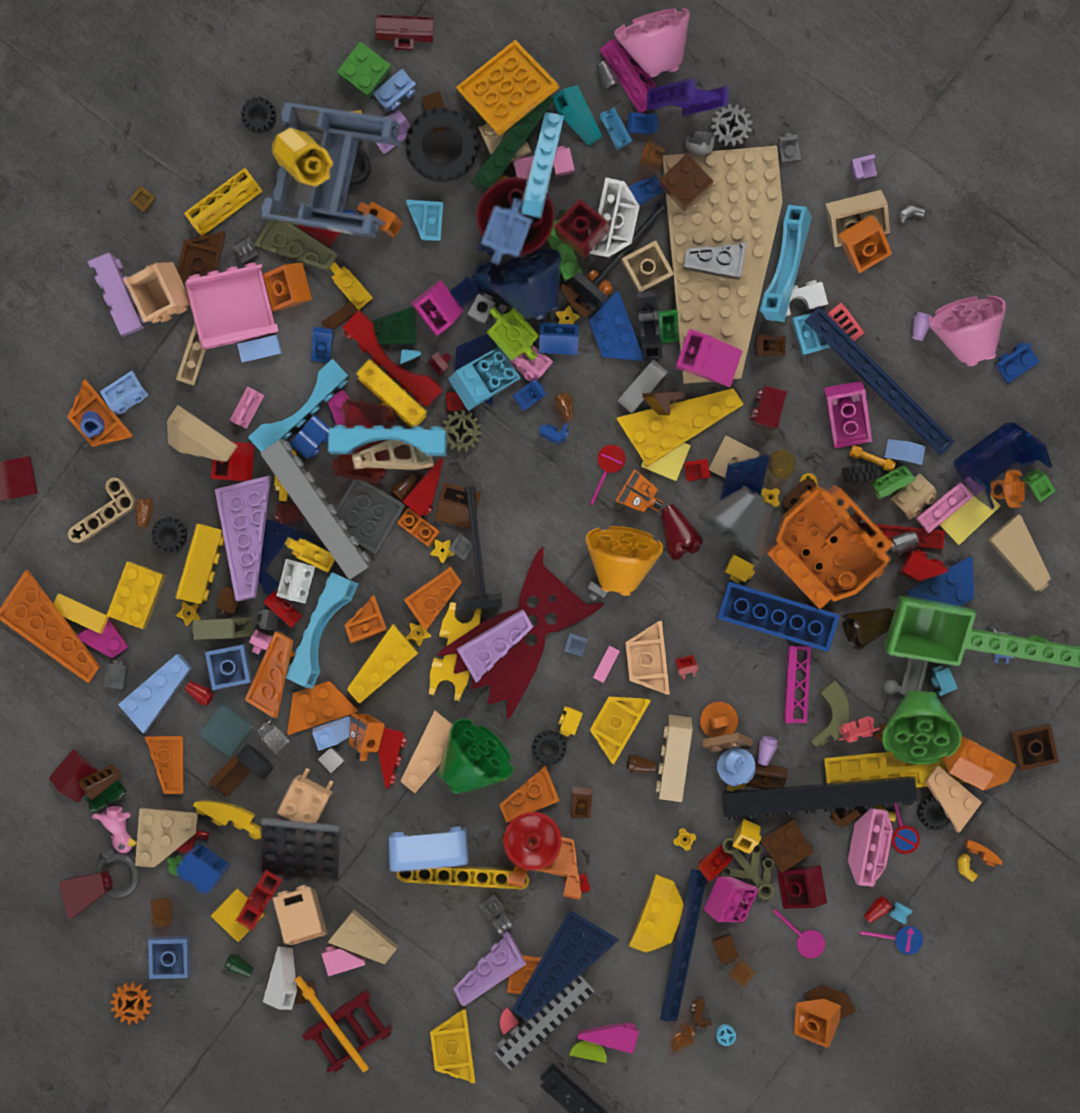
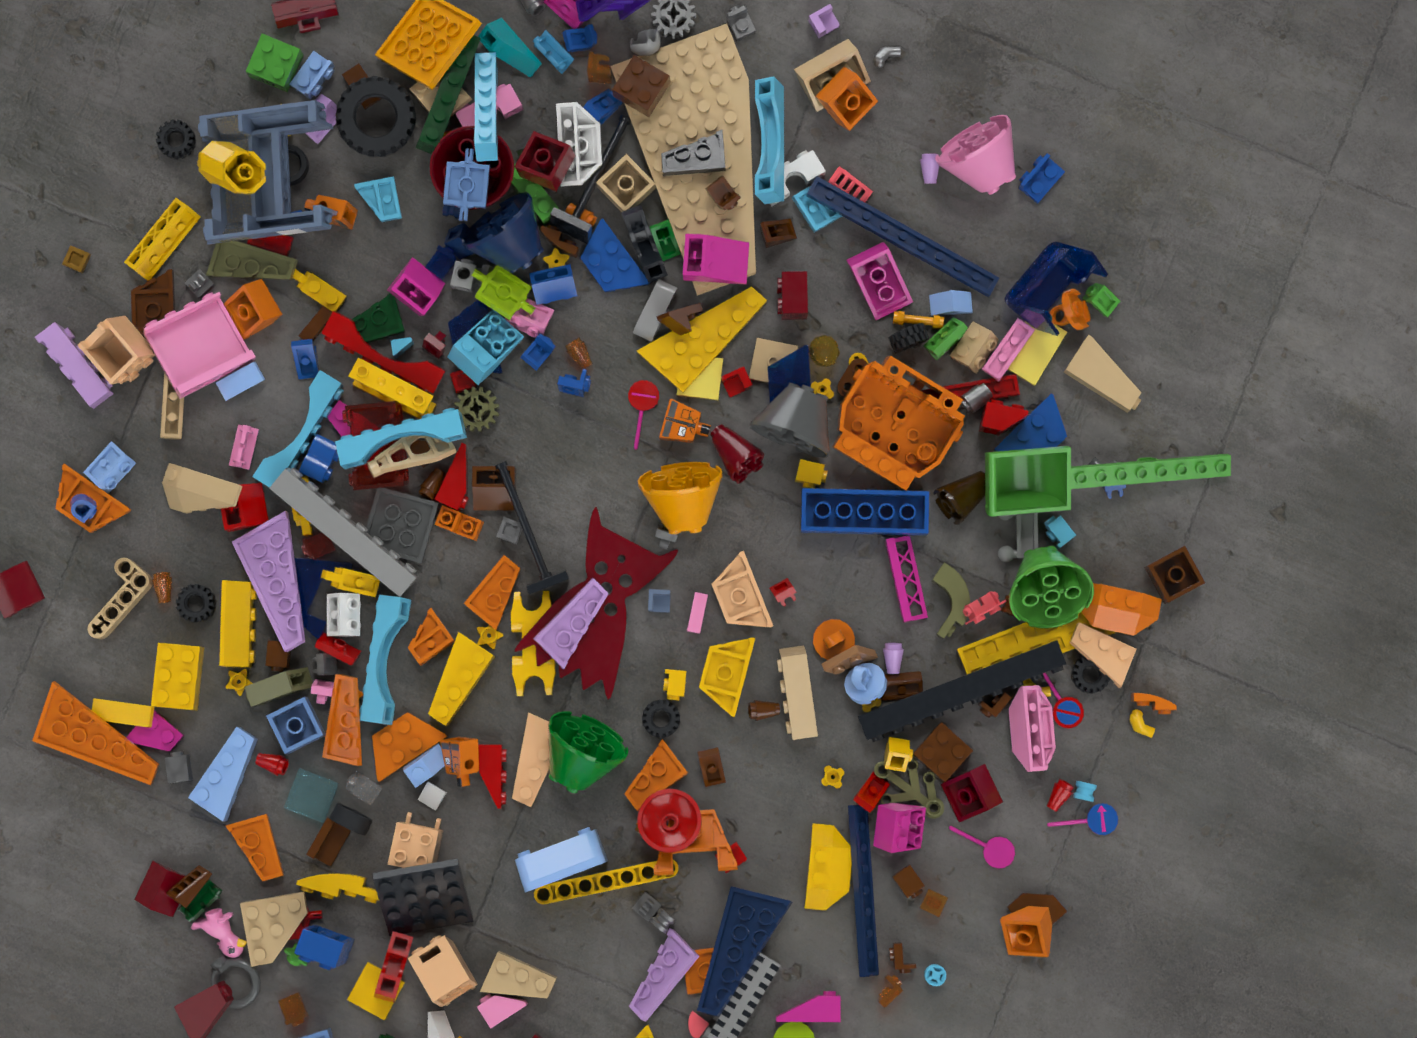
camera: 10 degrees left, 5 degrees down
(437, 551) = (492, 546): yellow plate -> none
(731, 300) = (723, 194): none -> reddish brown bracket

